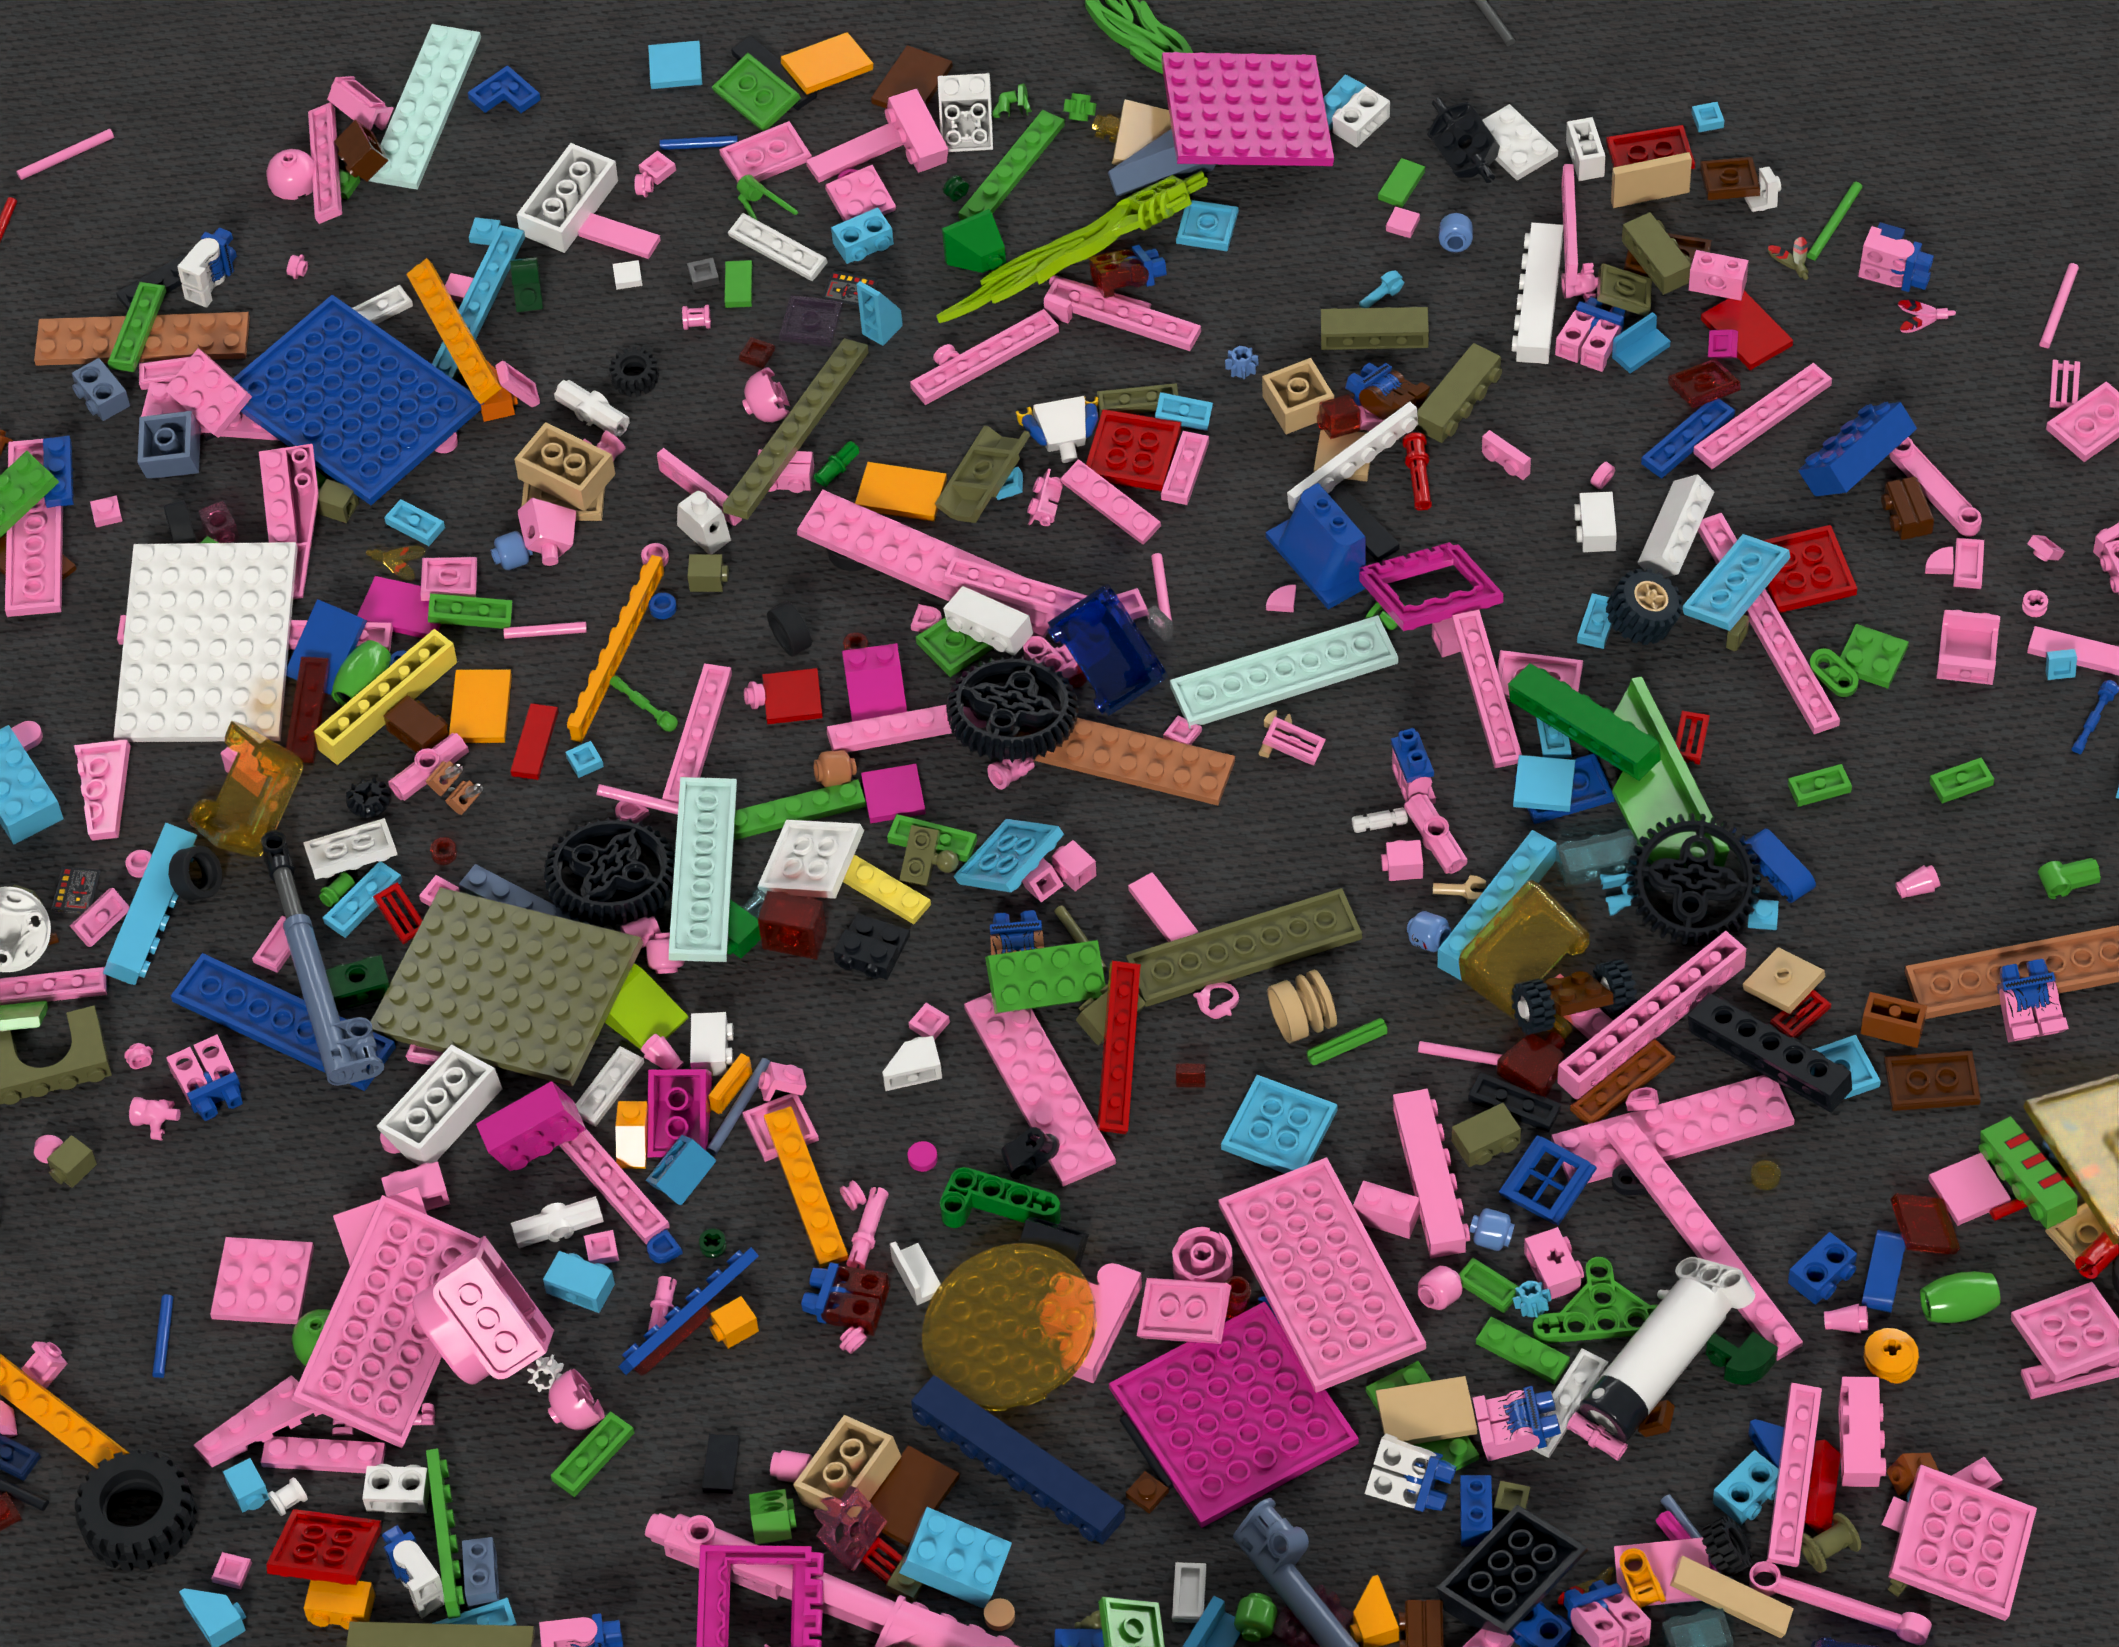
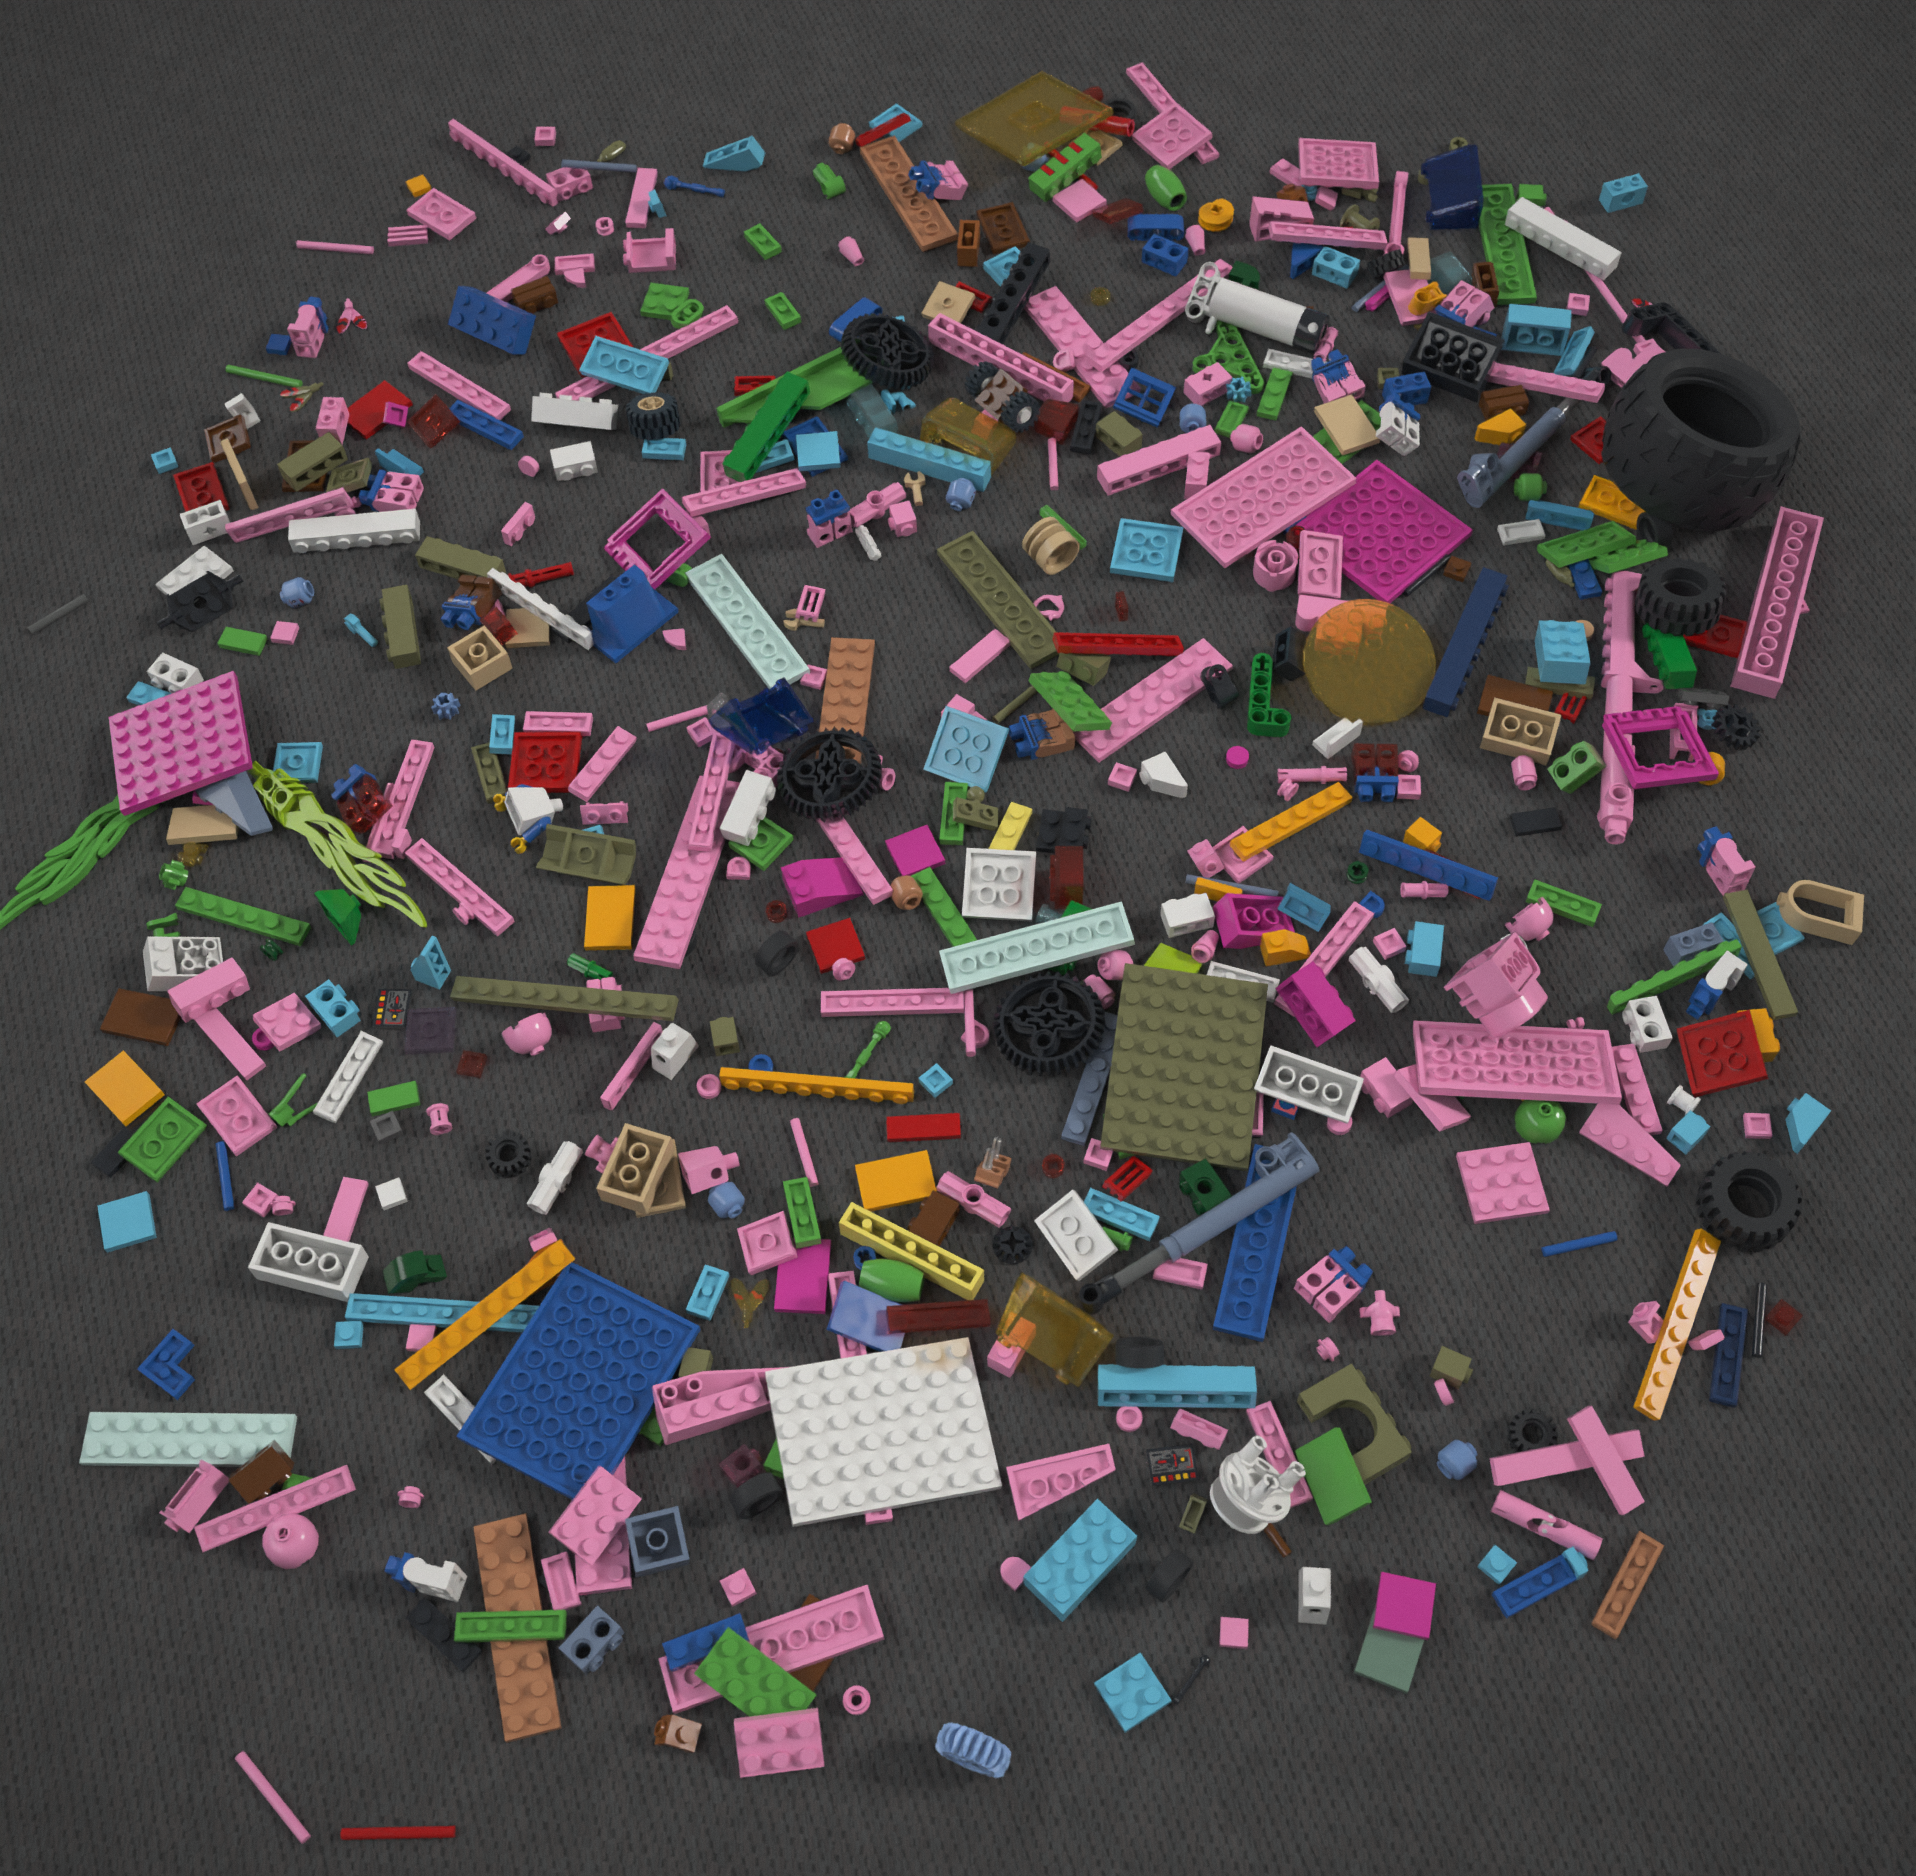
camera: 105 degrees left, 5 degrees up
(815, 1330) = (1409, 787): none -> bright pink plate
(849, 1550) = (1570, 714): clear pink piece -> none

